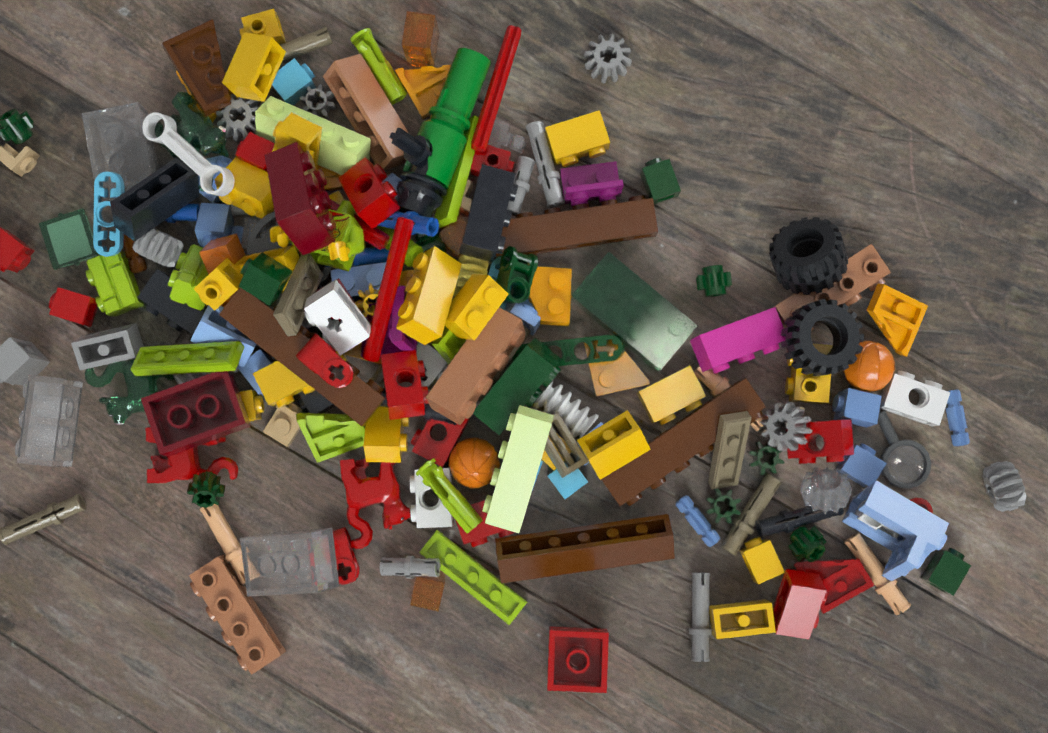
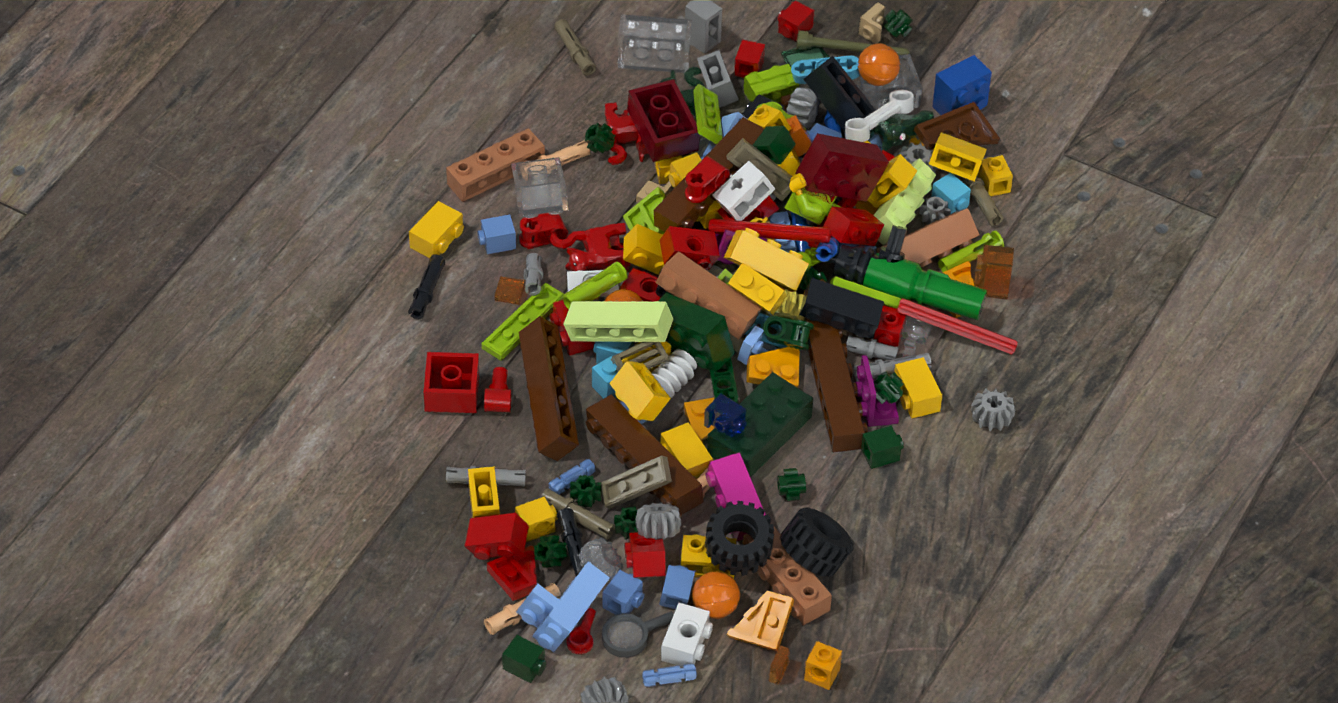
camera: 80 degrees right, 35 degrees down
(41, 238) = (807, 40): none -> olive piece
(115, 148) = (878, 64): none -> orange piece
(135, 55) = (962, 85): none -> blue brick
(341, 681) = (436, 230): none -> yellow brick
(352, 610) = (497, 234): none -> medium blue brick
(426, 691) = (424, 293): none -> black pin
(590, 604) = (498, 395): none -> red pin
(594, 168) = (888, 387): none -> dark green gear
(654, 348) = (725, 416): none -> clear blue brick
(948, 302) = (779, 665): none -> clear orange tile
(950, 257) = (823, 665): none -> light orange brick

